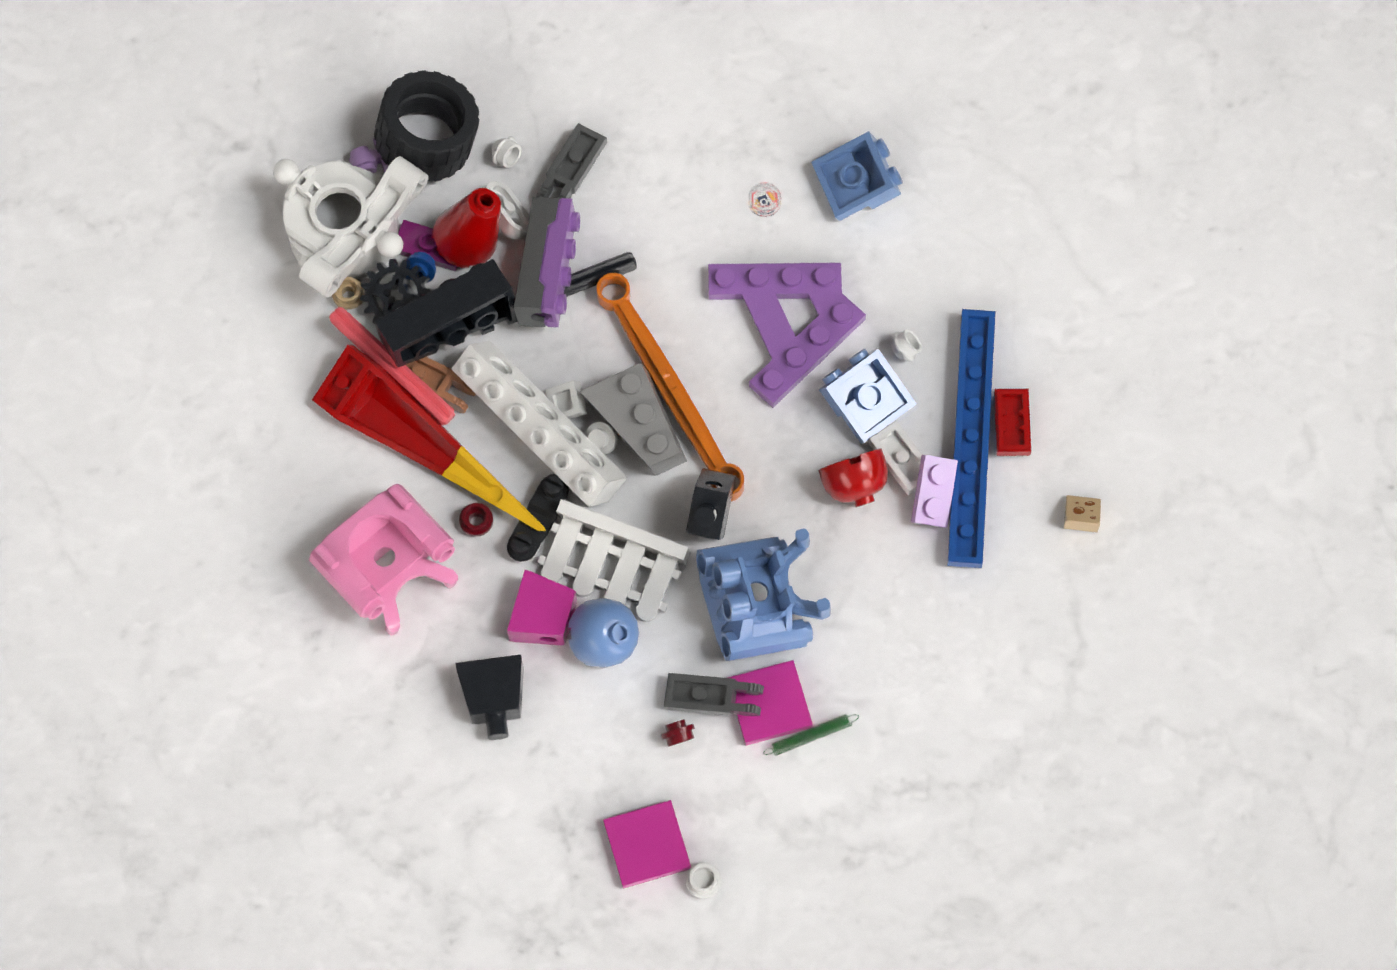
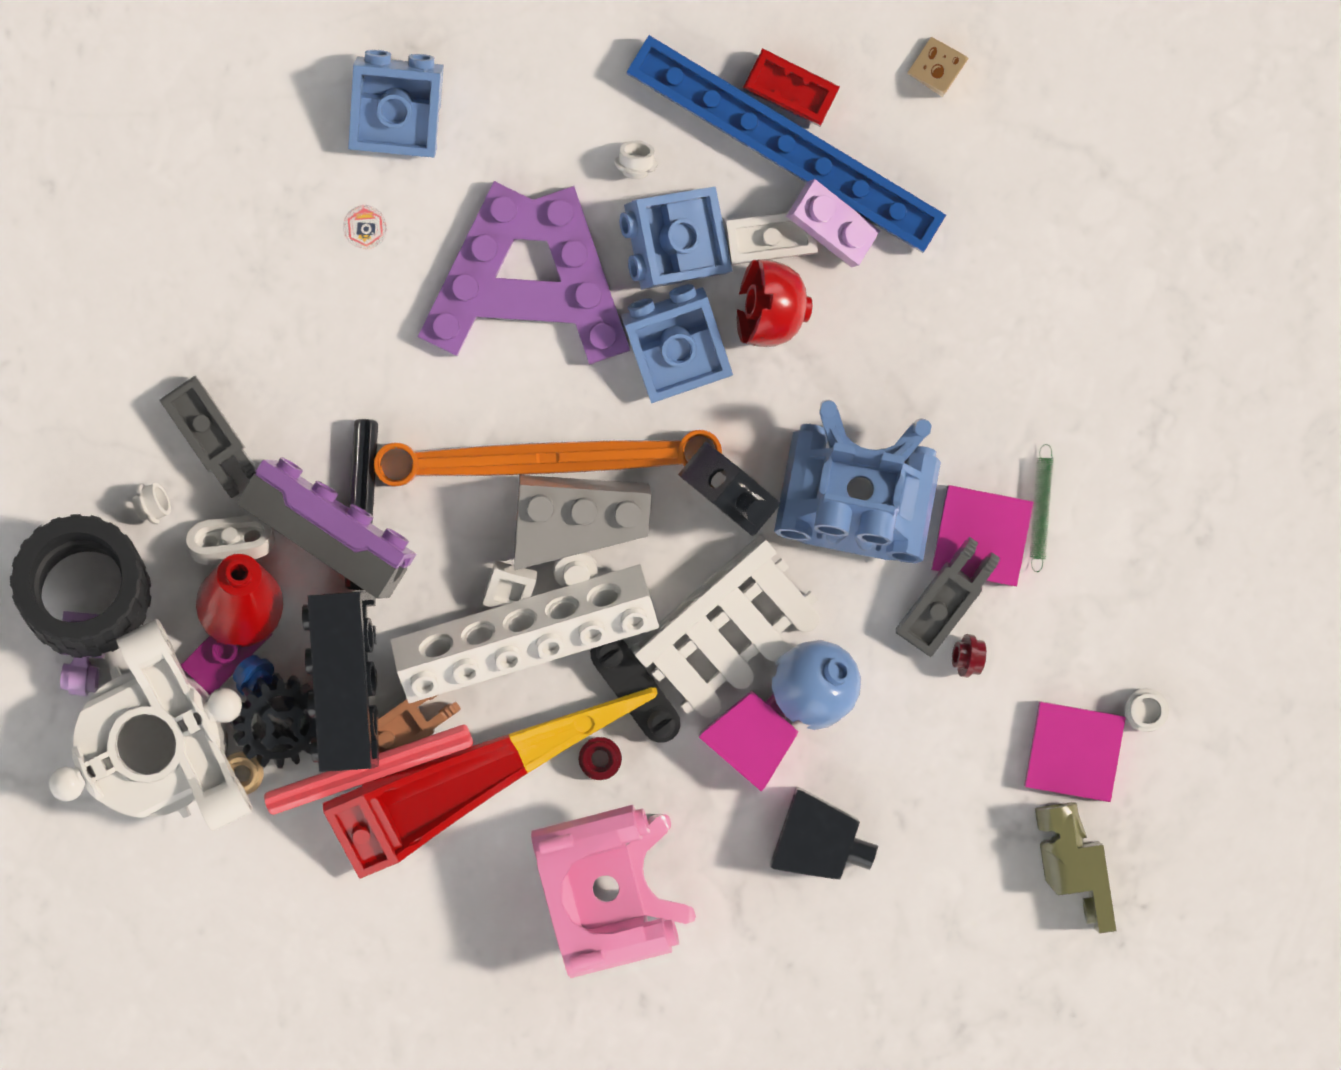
camera: 60 degrees left, 20 degrees up
(563, 882) = (1076, 865): none -> olive plate
(794, 428) = (676, 342): none -> medium blue plate

